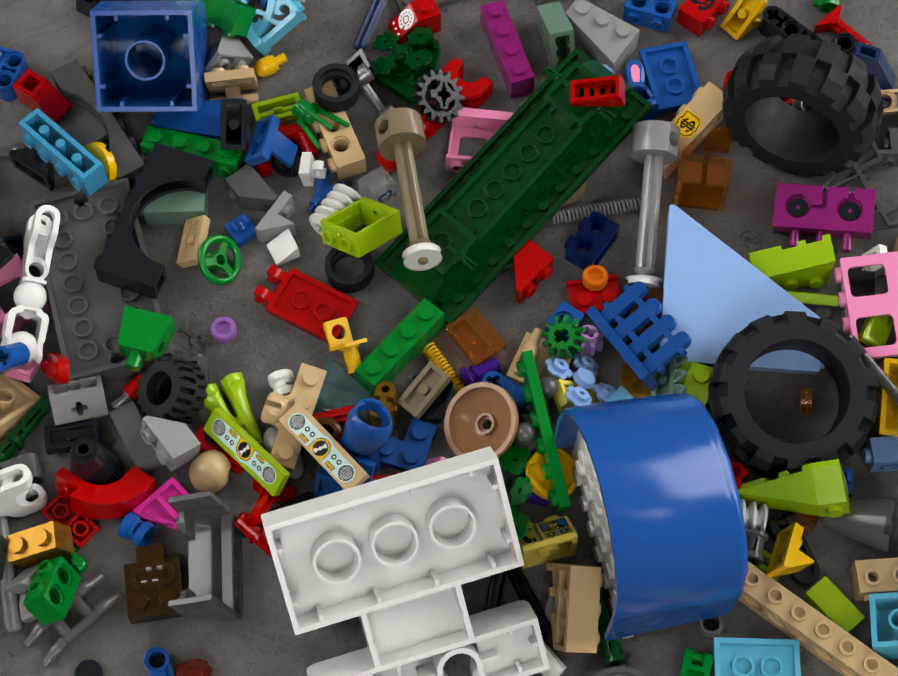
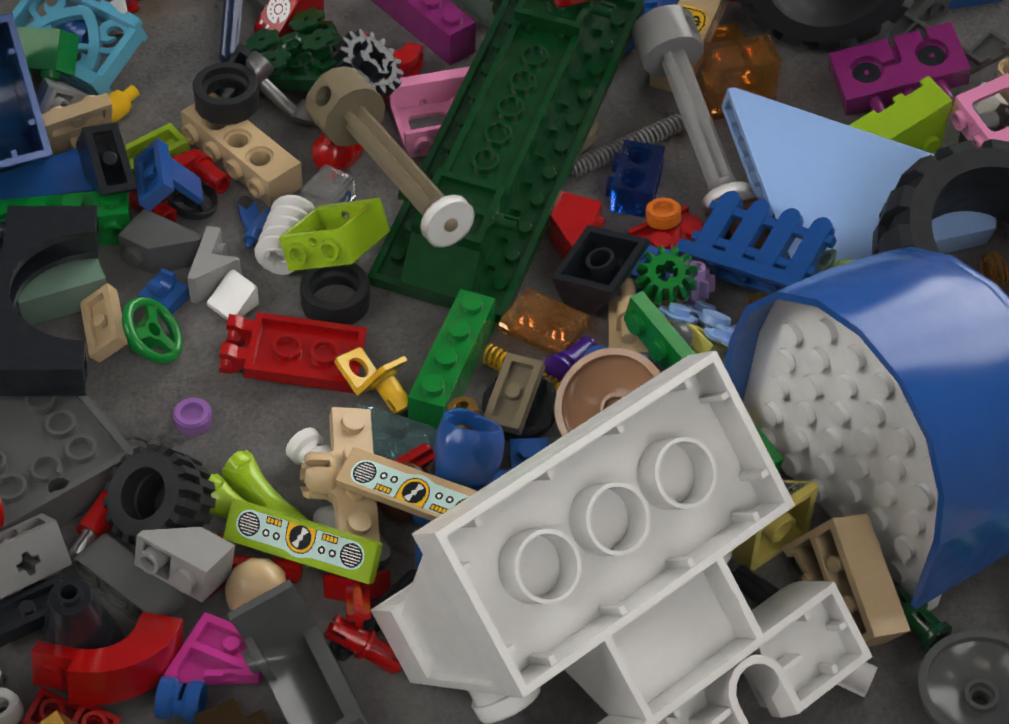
camera: 25 degrees left, 15 degrees down
(144, 336) = (91, 437): green torso -> none
(308, 114) = (201, 131): green plant -> none
(311, 169) = (231, 198): white tile -> none
(524, 310) = (597, 267): none -> black slope

